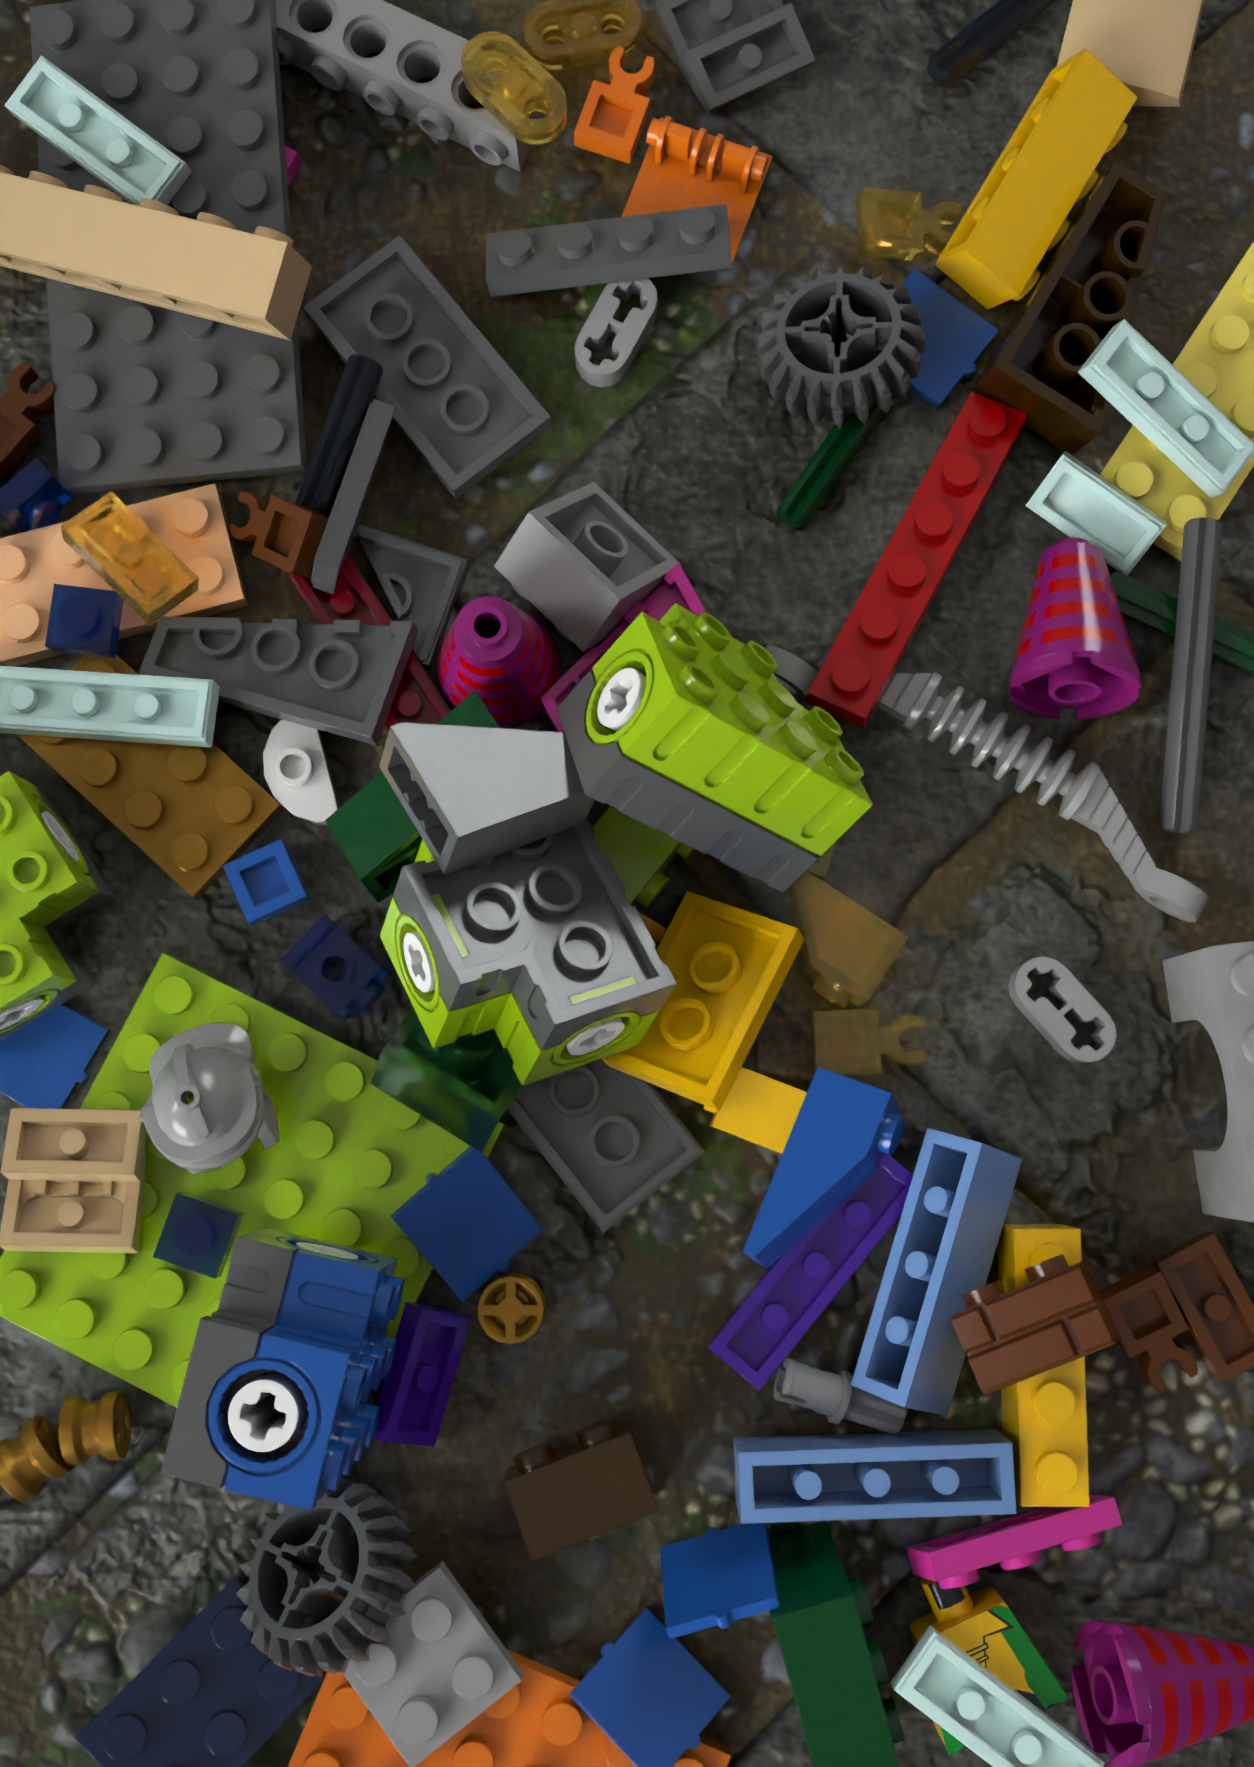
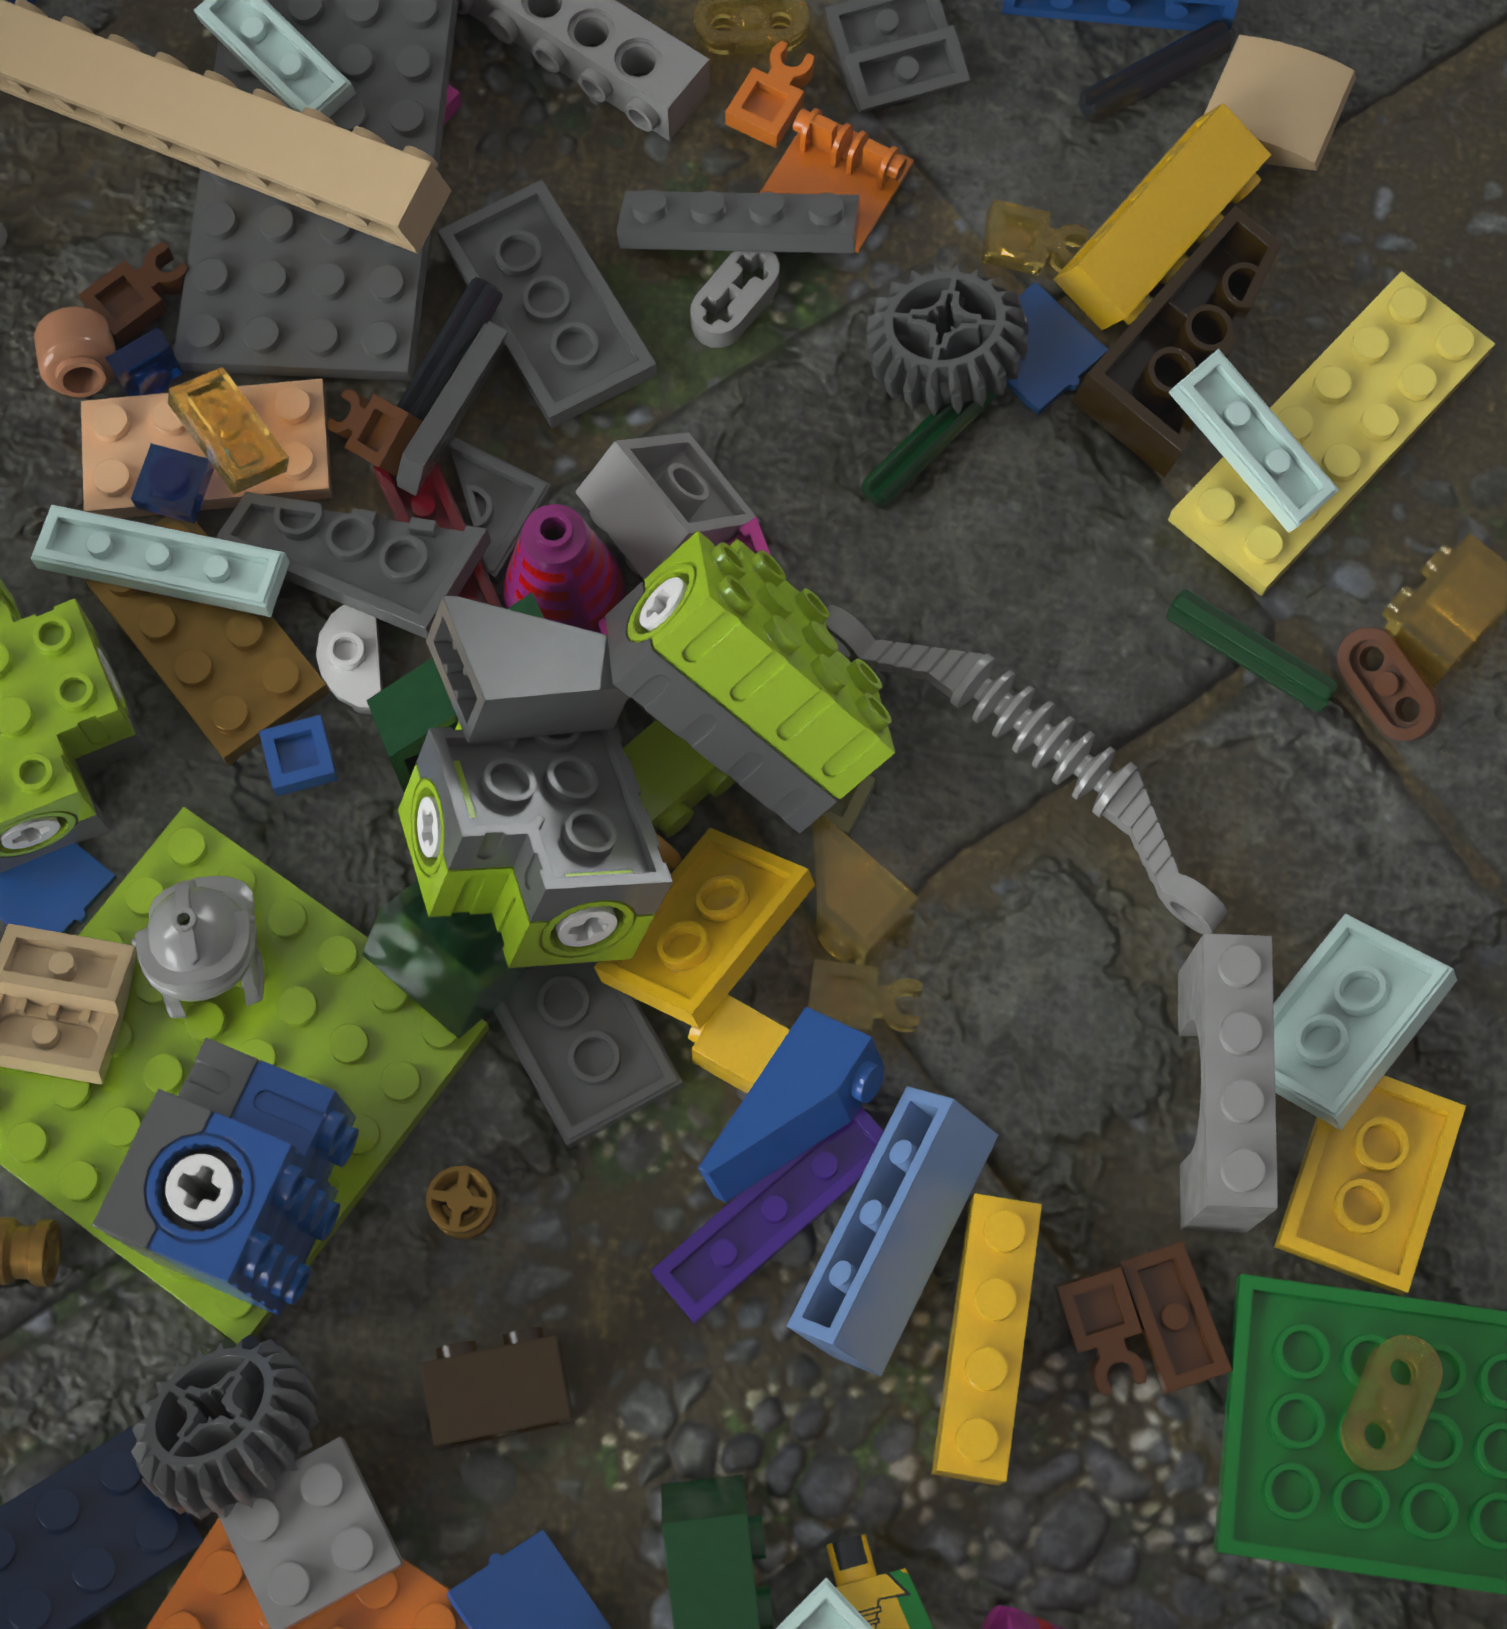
camera: 10 degrees right, 10 degrees down
(198, 1235) = (157, 1065): clear blue plate -> none
(314, 952) = (336, 825): clear blue brick -> none
(421, 1374) = (358, 1252): dark purple plate -> none
(467, 1222) = (432, 1110): blue piece -> none
(518, 92) = (677, 65): clear yellow plate -> none
(718, 1578) = (618, 1495): blue piece -> none
(835, 1397) = (776, 1346): light grey axle -> none
(874, 1476) = (793, 1420): medium blue brick -> none
(916, 560) = (988, 547): red plate -> none
(1012, 1541) = (927, 1510): dark pink plate -> none
(1033, 1325) = (973, 1278): reddish brown brick -> none
(1072, 999) = (1078, 993): light grey beam -> none
(1074, 639) = (1129, 646): magenta cone -> none
(1096, 510) = (1174, 532): light aqua tile -> none
(1191, 675) = (1242, 697): dark grey axle -> none

